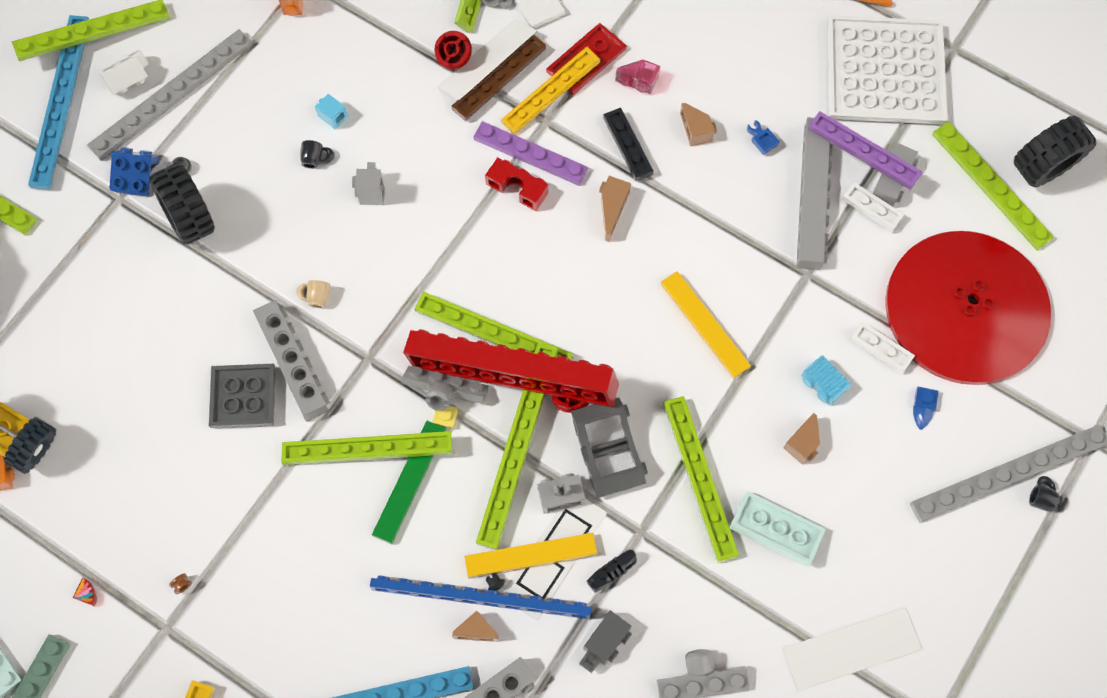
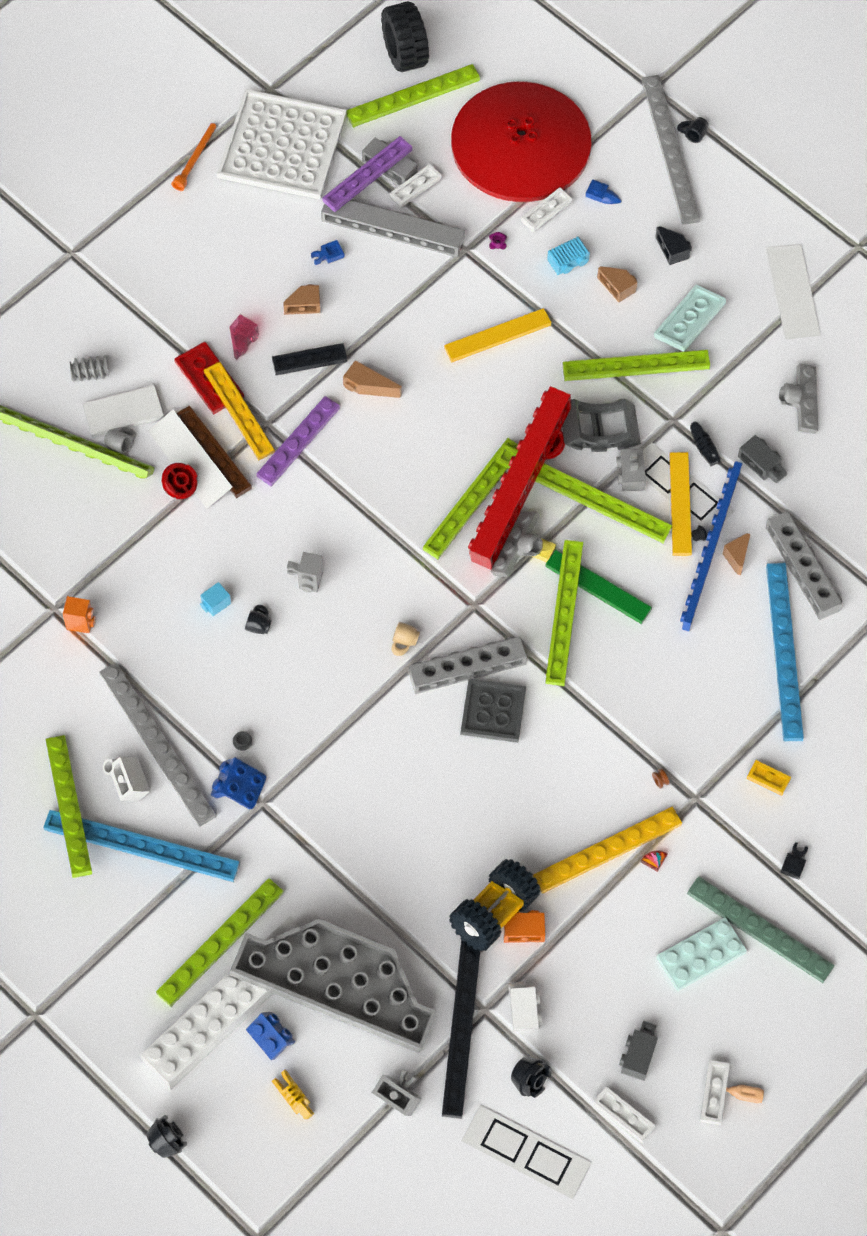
camera: 80 degrees left, 5 degrees down
(95, 542) = (607, 849): none -> yellow plate
(182, 203) = (299, 726): black tyre -> none
(504, 174) = (339, 443): red arch -> none
(826, 298) = (498, 236): none -> magenta plate
(872, 496) = (673, 245): none -> black slope

